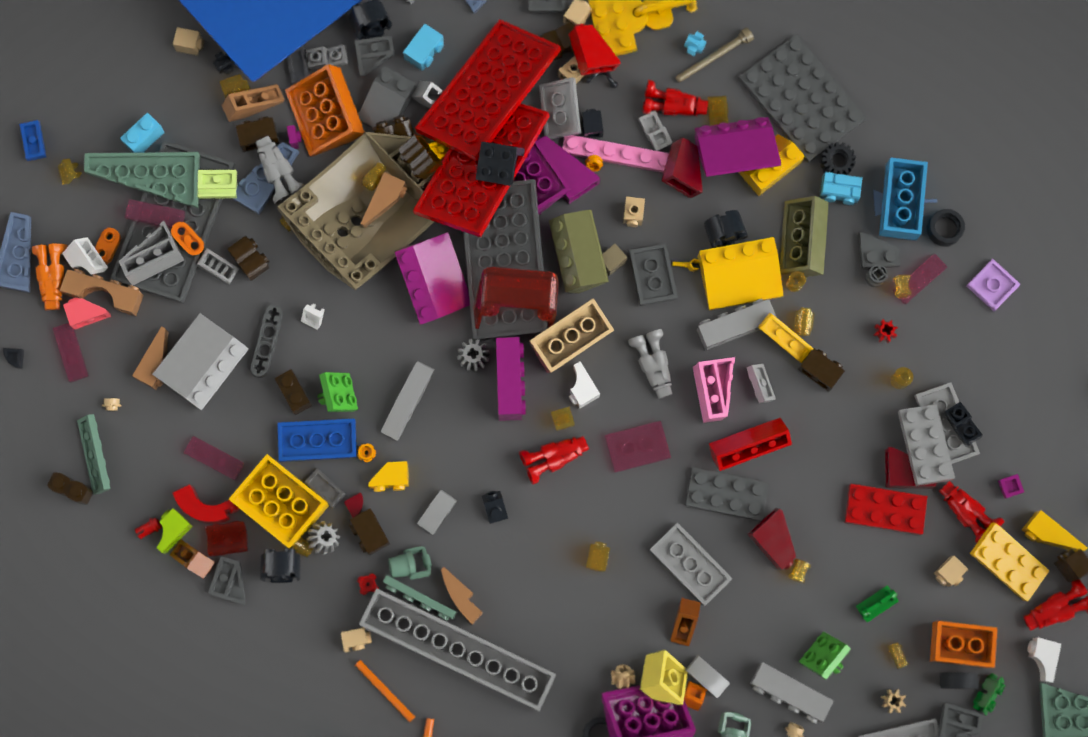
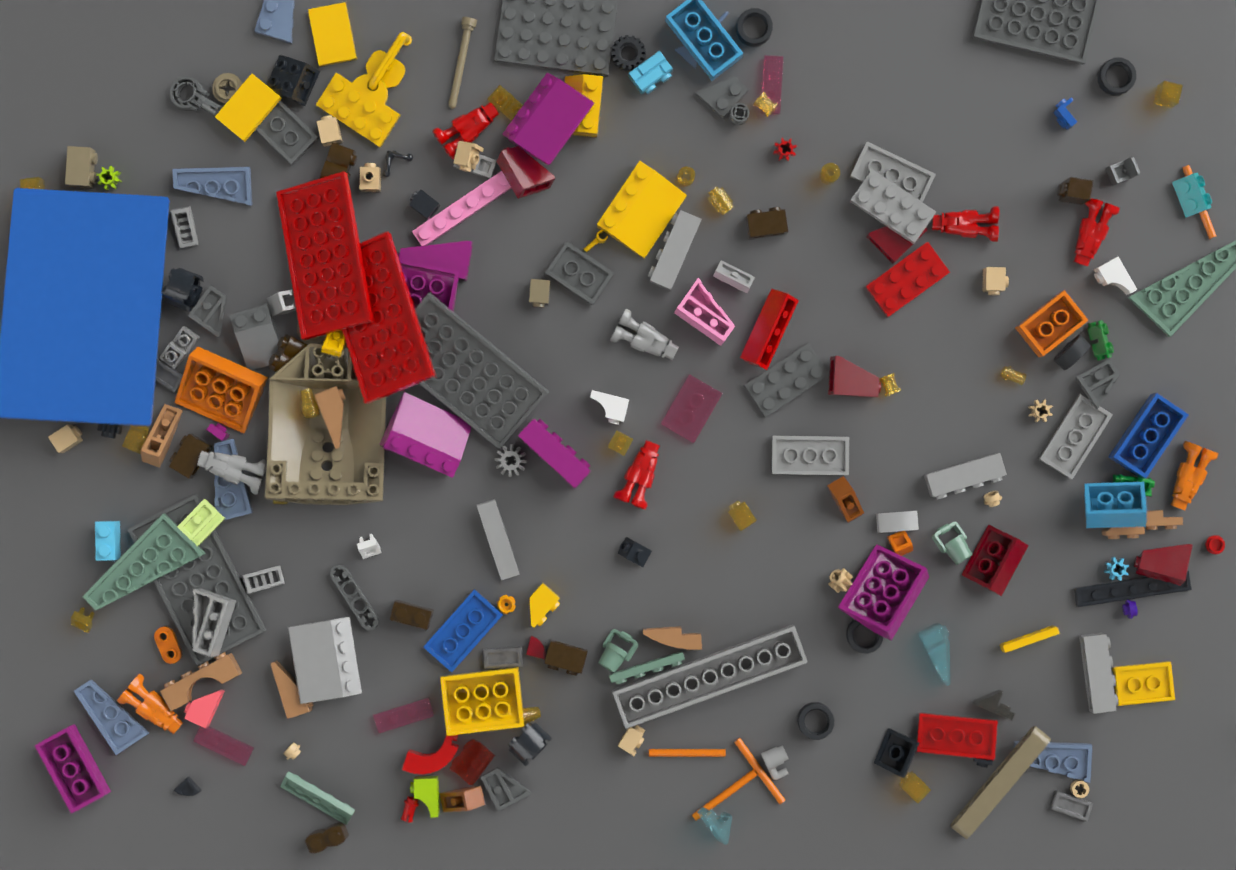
camera: 45 degrees left, 10 degrees up
(33, 140) = (32, 623): blue plate -> none
(83, 254) = (162, 668): white arch -> none
(153, 213) = (179, 589): clear pink tile -> none
(188, 238) = (222, 583): orange plate -> none
(248, 258) = (278, 551): dark brown brick -> none
(319, 543) = (538, 701): light grey gear -> none
(337, 392) = (444, 583): bright green plate -> none
(366, 589) = (601, 688): red plate -> none
(419, 156) = (329, 358): dark brown brick -> none
(423, 47) = (243, 269): medium azure brick -> none
(437, 512) = (598, 596): light grey slope -> none
(497, 163) = (391, 307): black bracket -> none
(516, 290) = (499, 388): clear red windscreen -> none
(561, 102) = (389, 214): light grey tile -> none
(571, 336) = (568, 378): tan slope -> none
(578, 251) = (510, 311): olive slope -> none
(592, 51) = (369, 150): red slope -> none
(594, 163) = (455, 232): light orange plate -> none
(633, 211) = (520, 240): tan brick -> none
(655, 118) = (467, 155): none -> tan brick
(664, 678) = (869, 553): light yellow slope -> none
(695, 43) = (438, 67): medium azure gear -> none
(725, 229) = (599, 189): black brick -> none
(785, 337) = (719, 226): yellow tile -> none
(804, 236) = (660, 136): olive slope -> none
(825, 655) = (964, 427): bright green plate -> none
(877, 603) = (965, 353): green hinge -> none
(962, 424) = (904, 165): black slope -> none
(993, 285) = (828, 36): lavender tile -> none
(1009, 562) = (1029, 233): yellow plate -> none
(1011, 486) = (979, 175): magenta plate -> none
(1047, 531) = (1032, 184): yellow slope -> none

